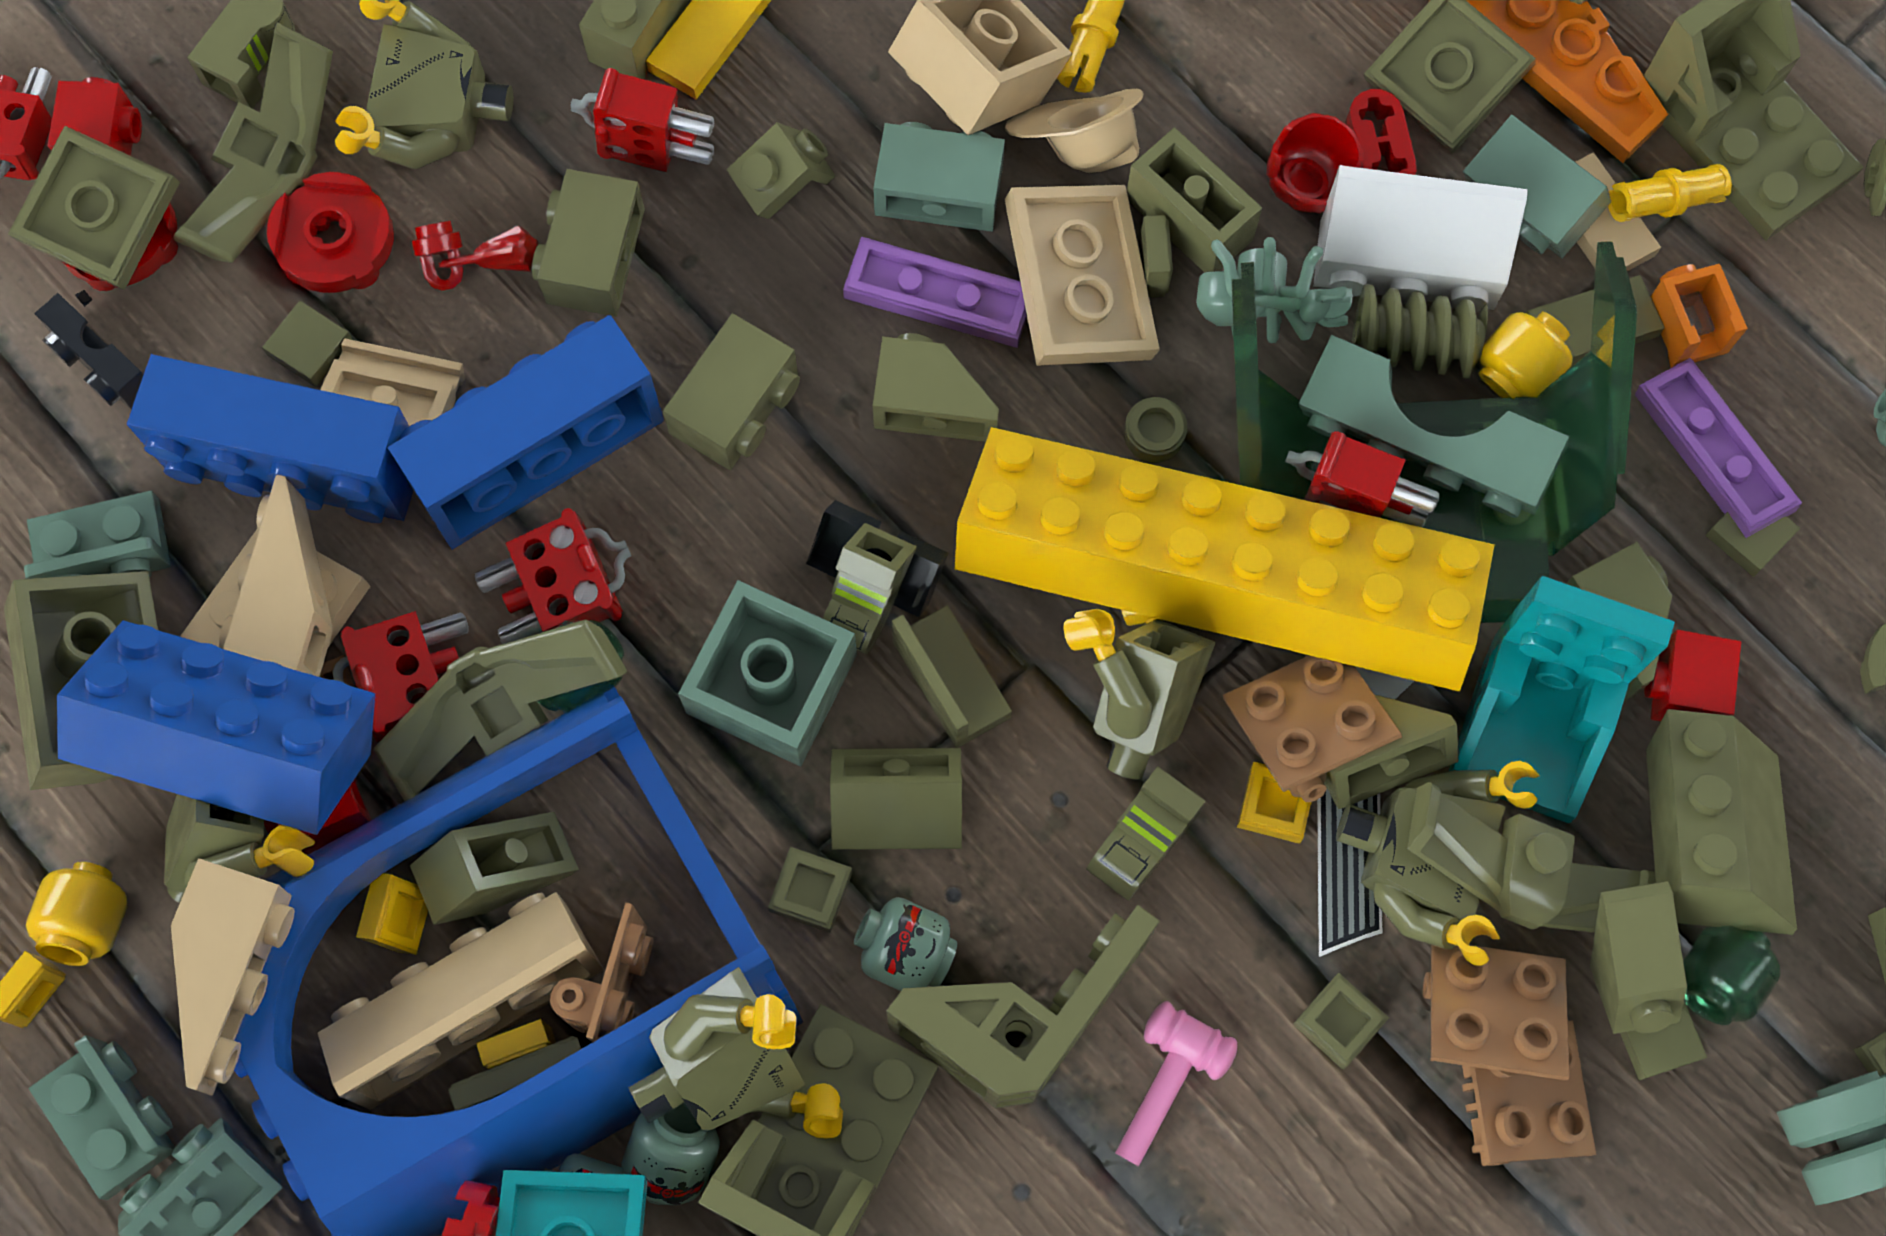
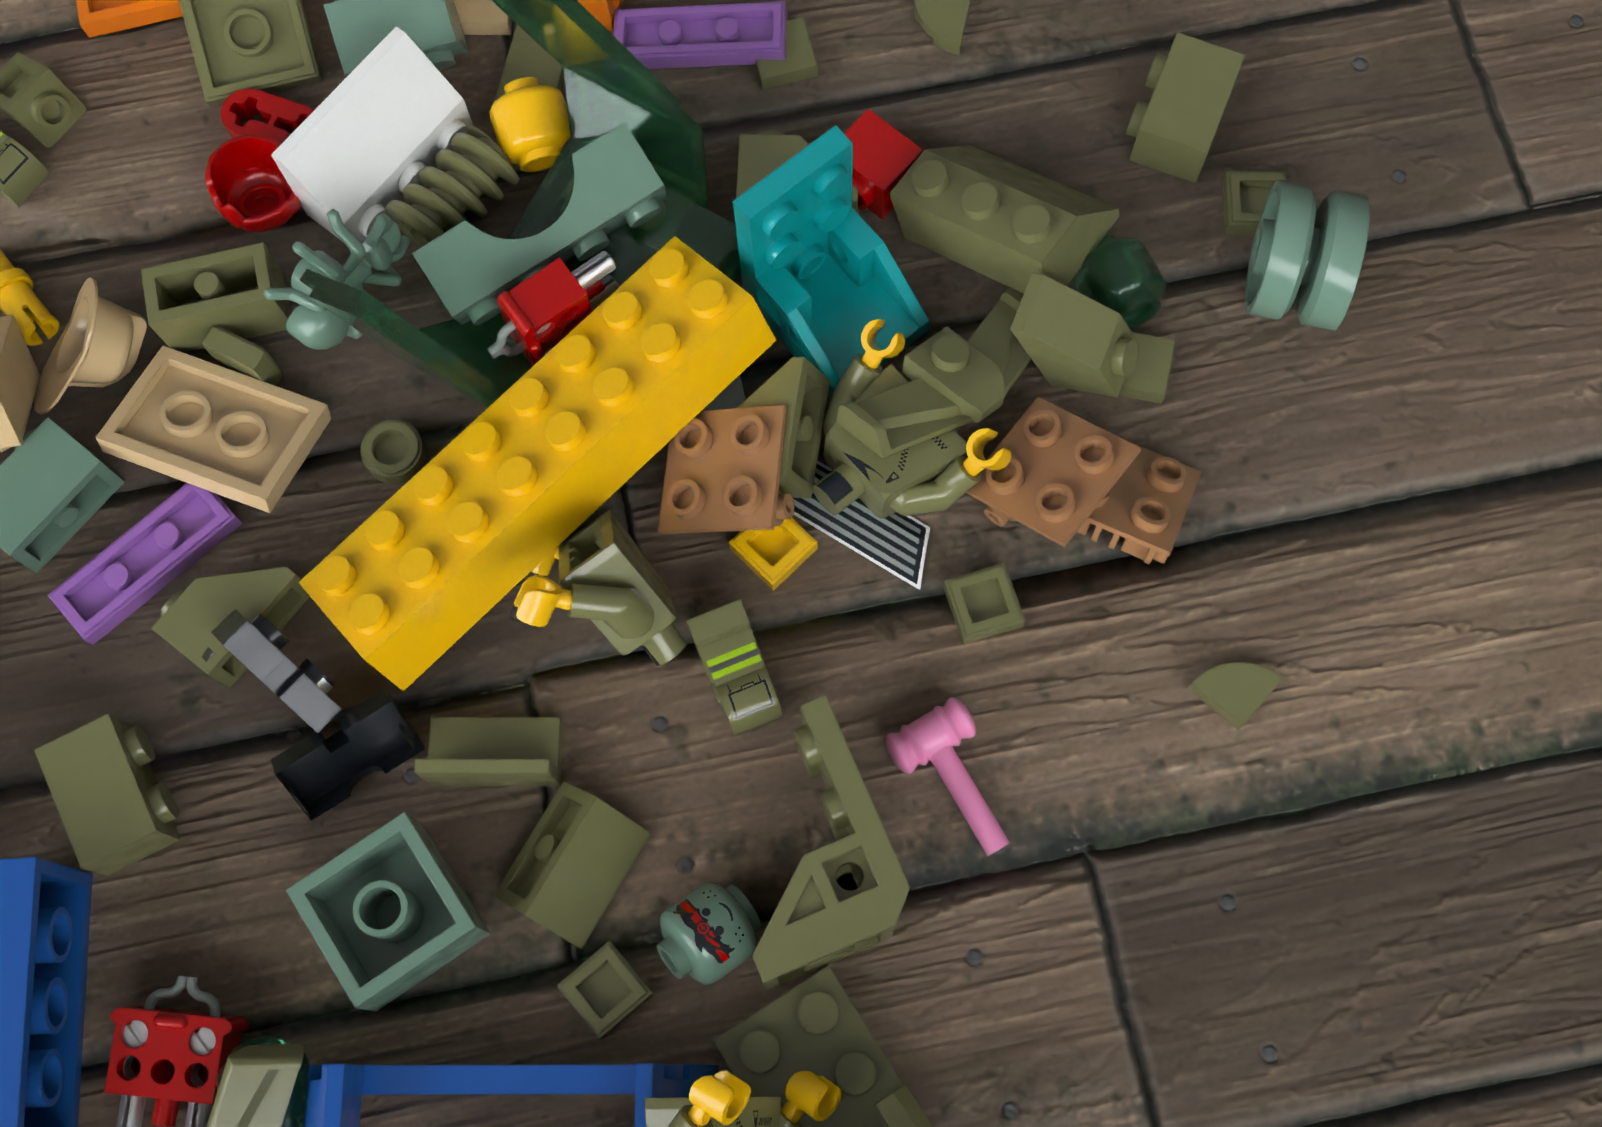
camera: 55 degrees left, 0 degrees up
(868, 584) = (366, 774): olive leg -> none
(916, 432) = (259, 649): none -> piece

